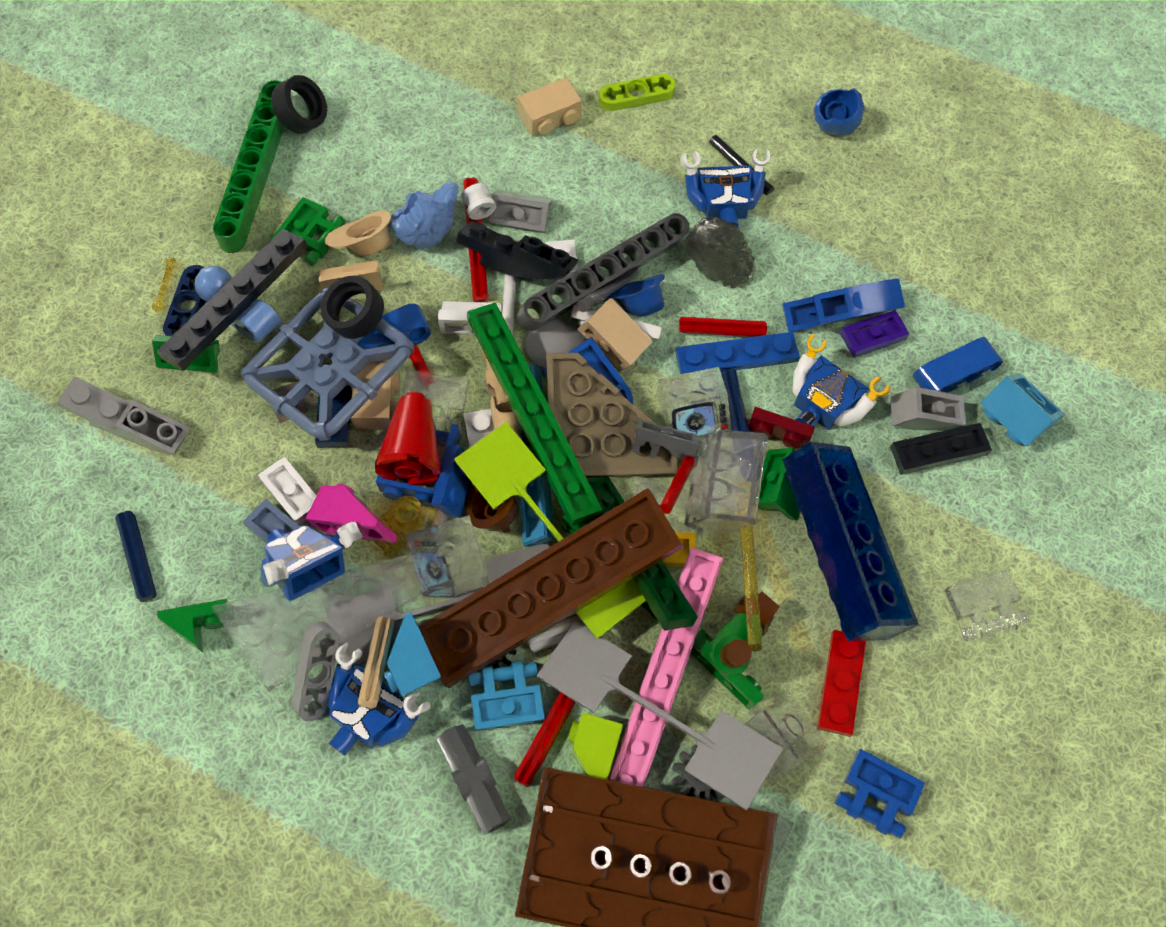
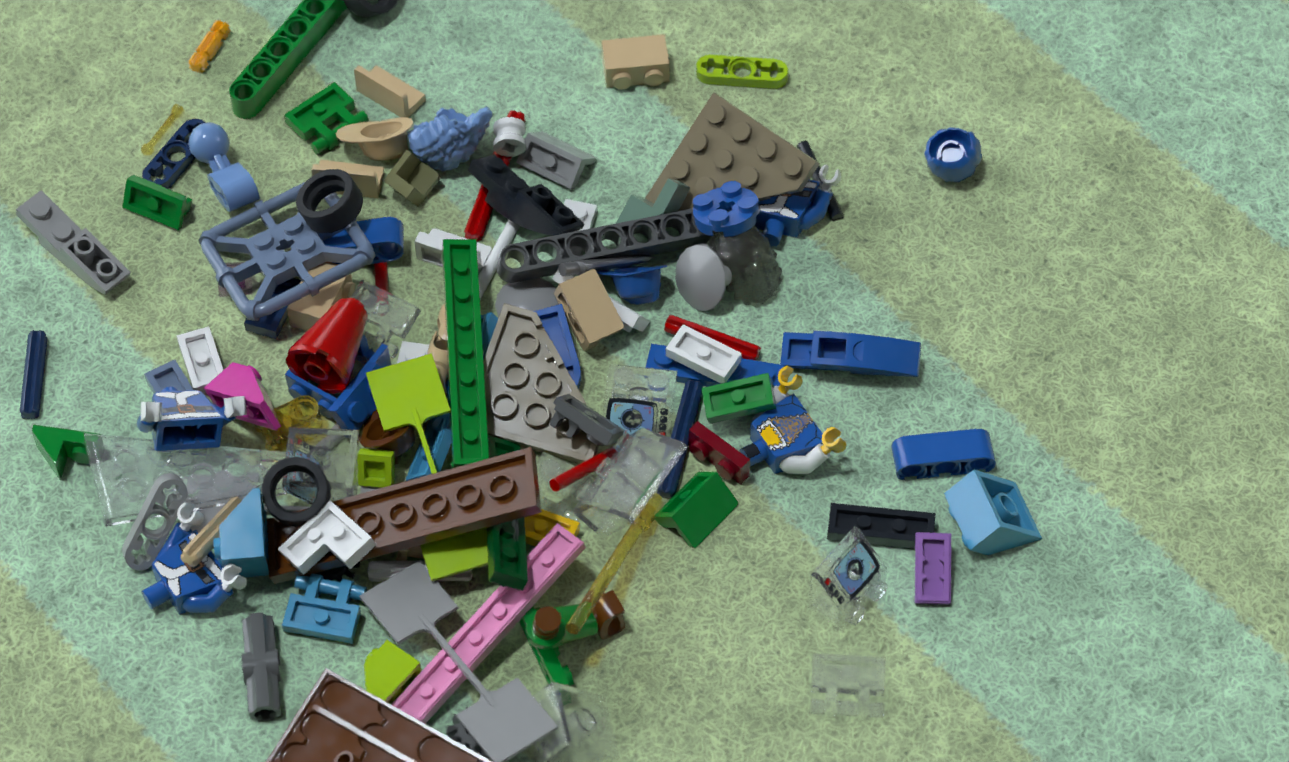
camera: 25 degrees right, 10 degrees down
(176, 197) = (209, 46): none -> light orange axle
(232, 300) = (220, 161): black plate -> none
(352, 191) = (388, 91): none -> tan panel
(408, 263) = (412, 178): none -> olive panel
(452, 622) = (287, 466): none -> black tyre
(485, 628) = (323, 533): none -> white plate
(495, 543) = (375, 468): none -> lime plate
(544, 740) = (347, 655): red axle -> none
(618, 233) = (668, 201): none -> sand green slope
(676, 169) = (734, 147): none -> dark tan plate
(693, 200) = (712, 207): none -> blue plate
(694, 276) = (701, 277): none -> light grey dish
(730, 344) = (703, 354): none -> white plate
(780, 374) = (739, 398): none -> green panel
(841, 685) = (660, 707): red plate -> none
(849, 543) = (726, 575): clear blue brick -> none
(874, 333) = (871, 393): dark purple plate -> none
(927, 409) = (883, 482): light grey slope -> none
(947, 511) = (847, 581): none -> clear slope
(1002, 473) = (933, 568): none -> medium lavender plate

